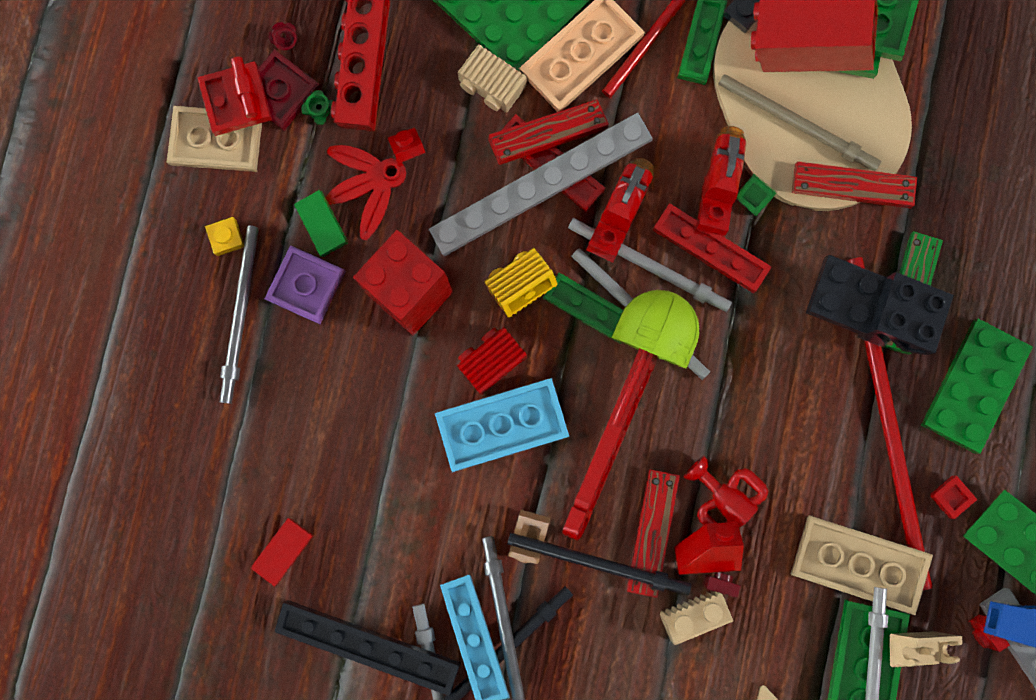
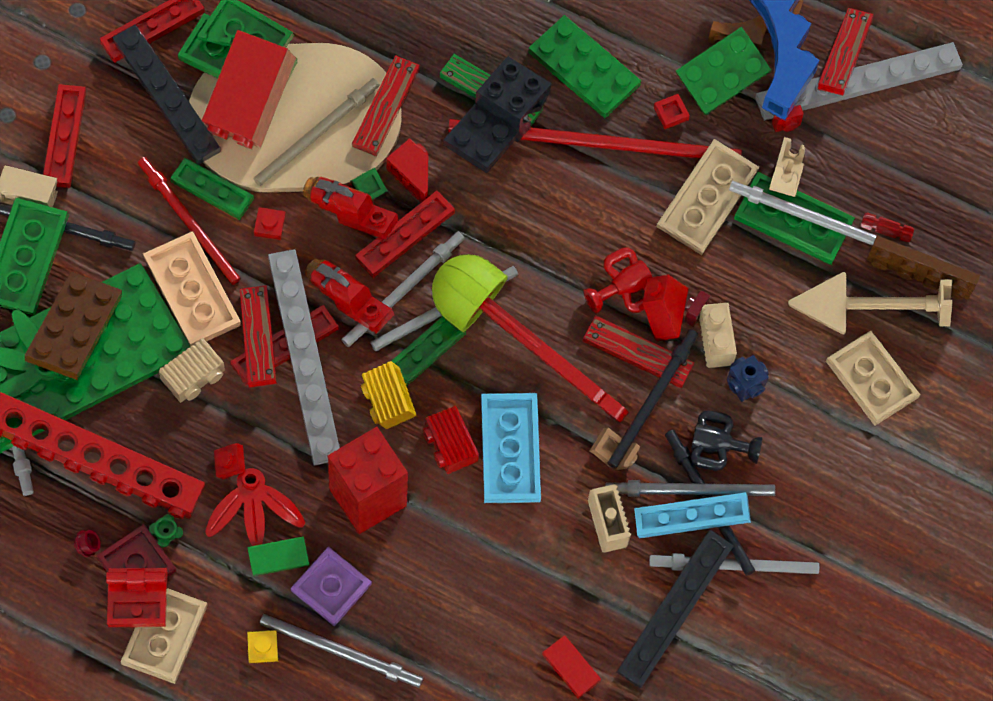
camera: 85 degrees left, 15 degrees down
(446, 551) = (609, 518): none -> tan brick
(571, 646) = (718, 441): none -> black piece
(648, 652) = (747, 385): none -> dark blue brick
(681, 108) = (269, 223): none -> red plate
(790, 233) = (410, 168): none -> red slope

